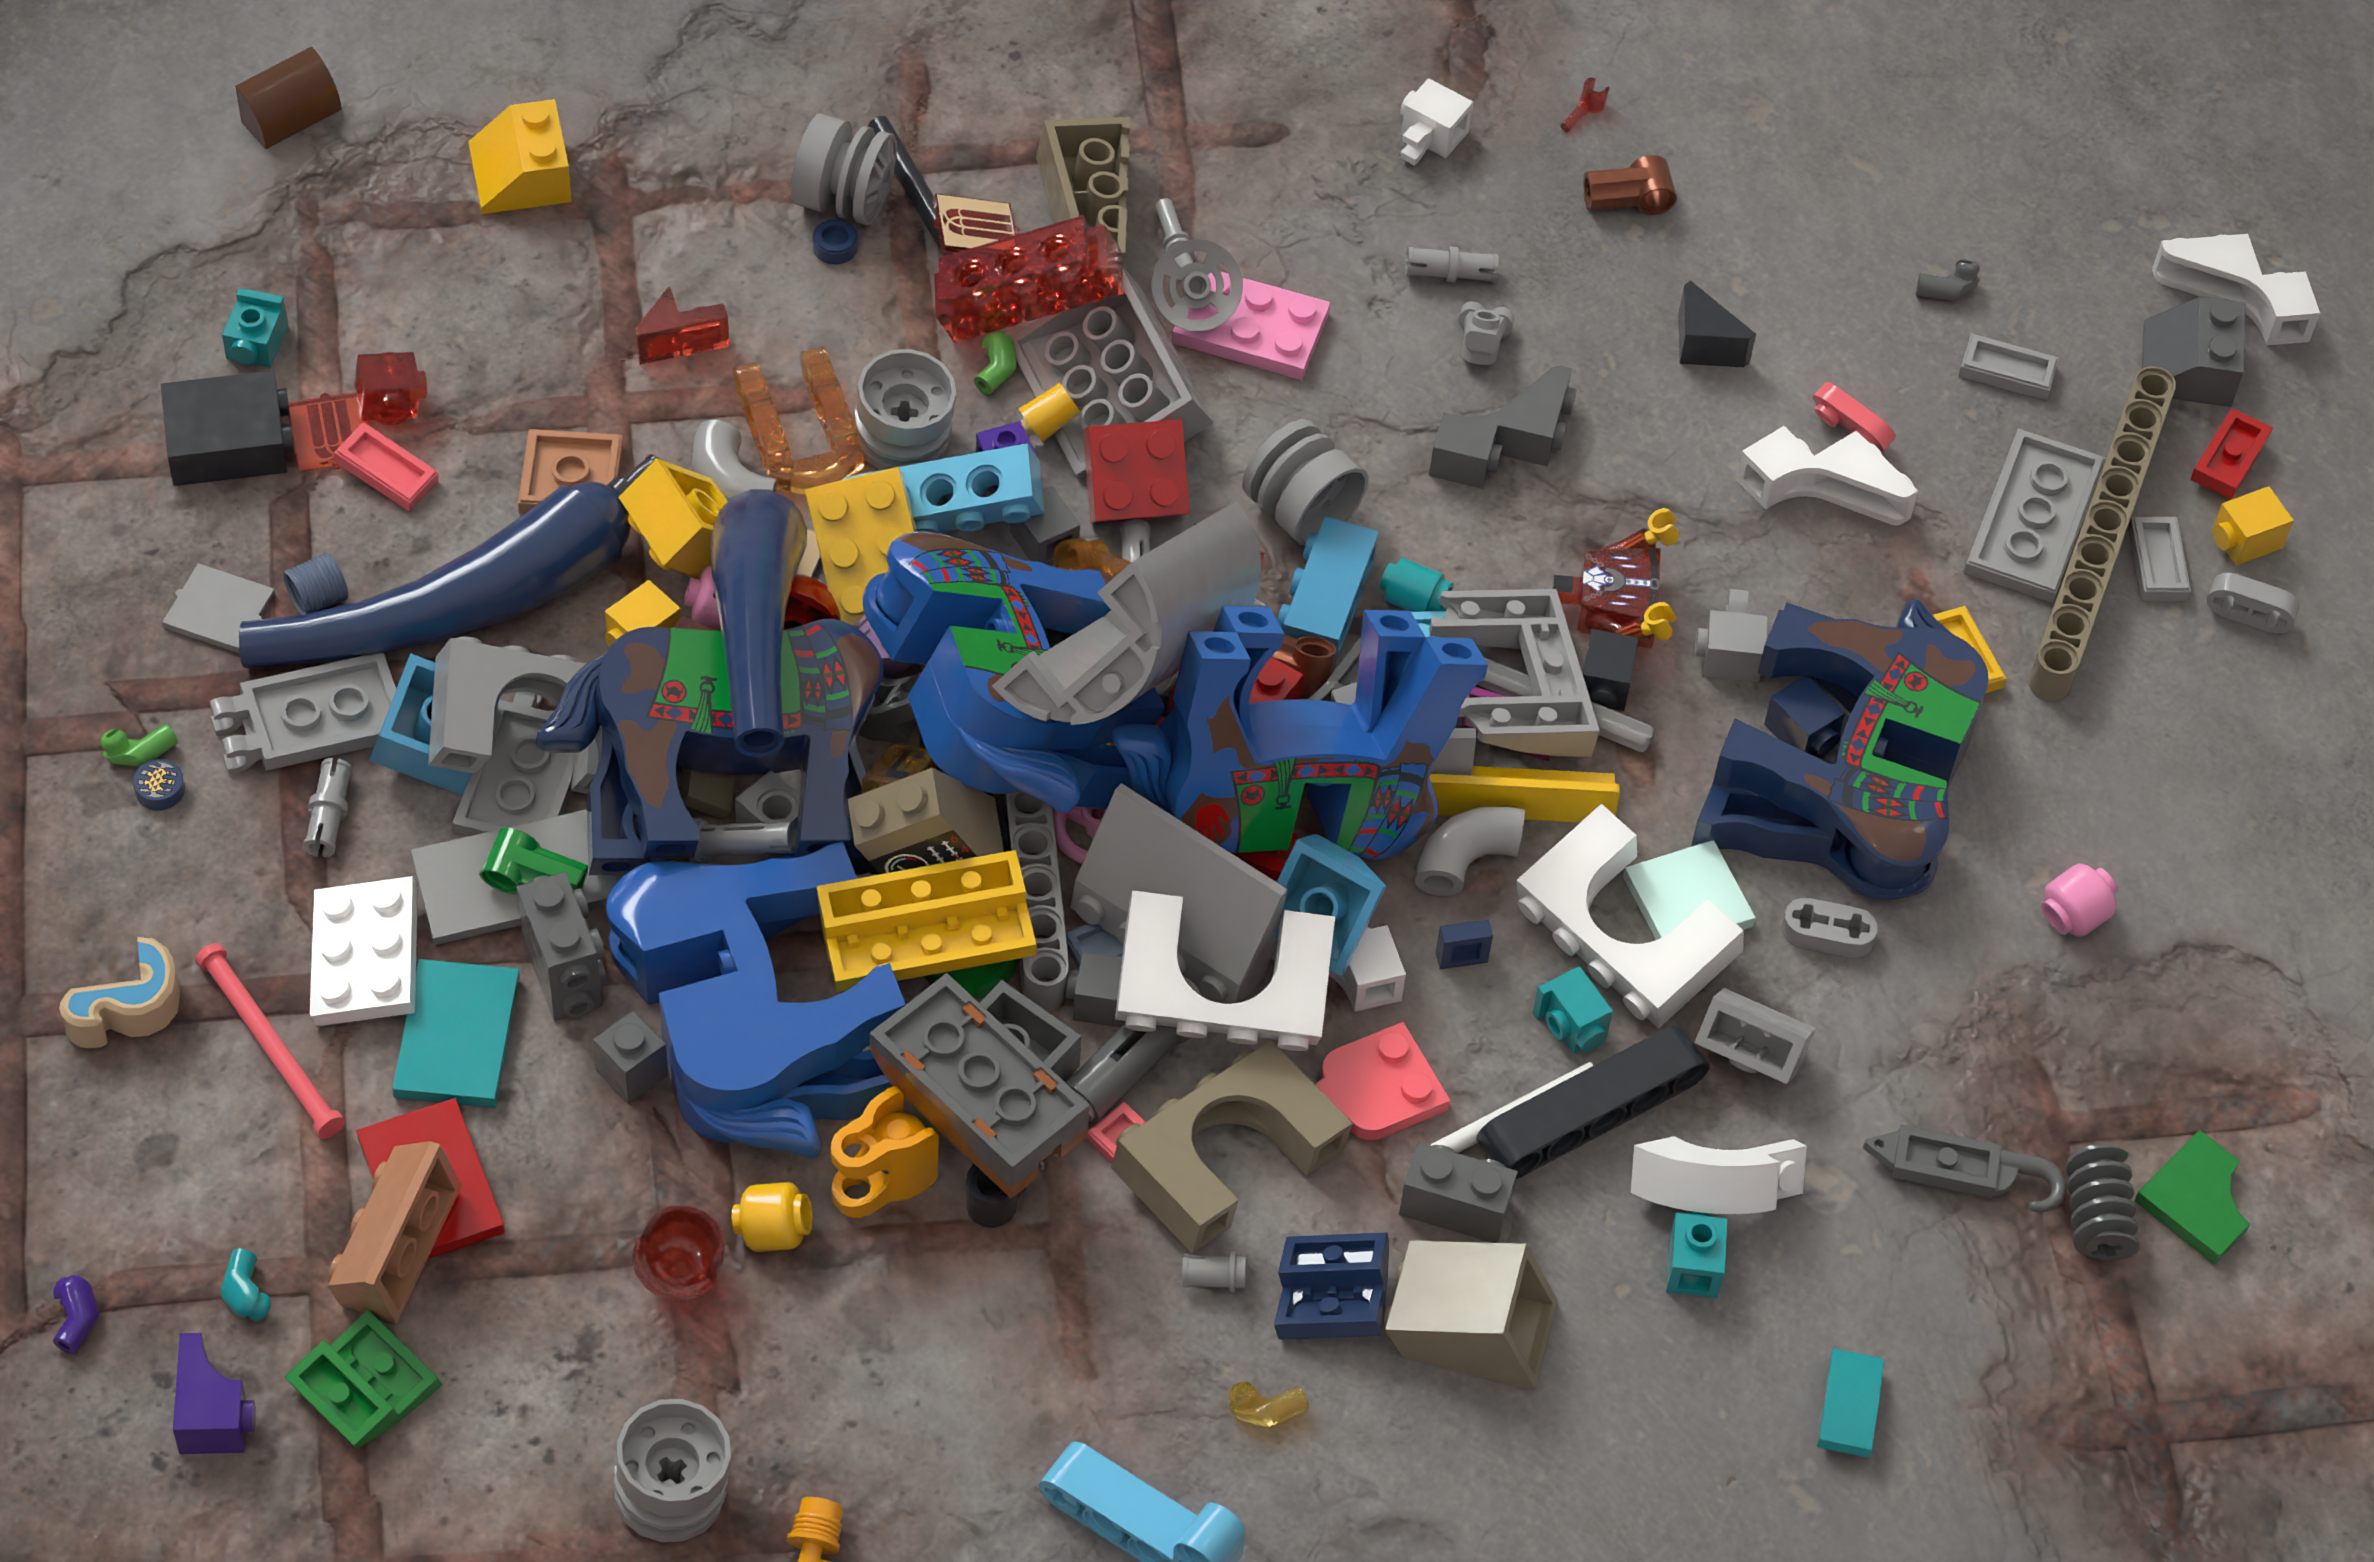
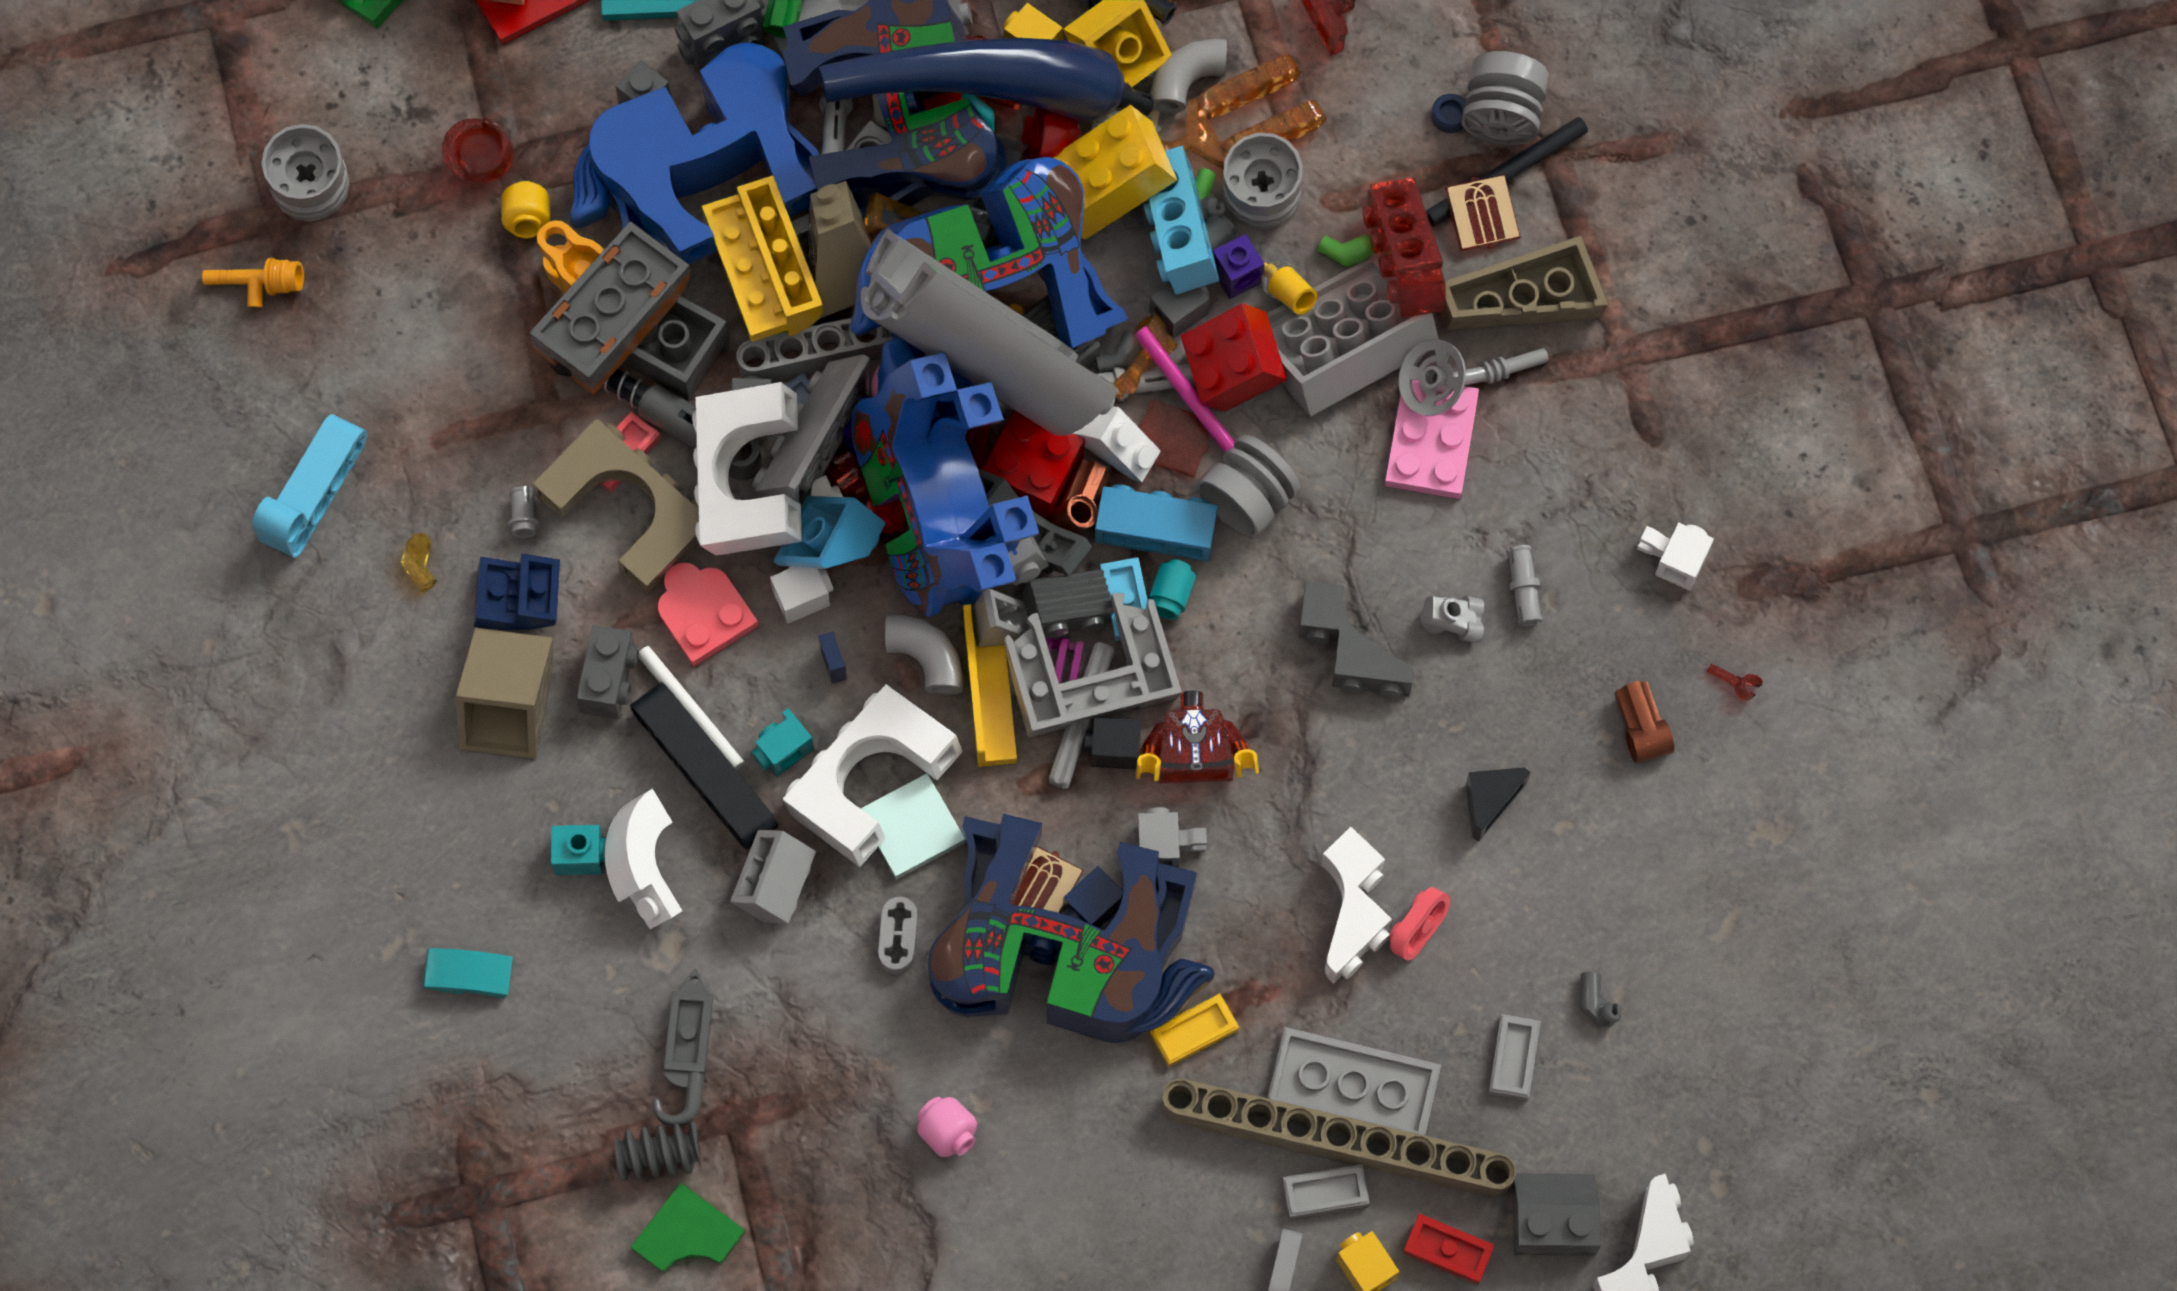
camera: 85 degrees right, 15 degrees up
(1143, 538) = (1184, 389): none -> dark pink piece

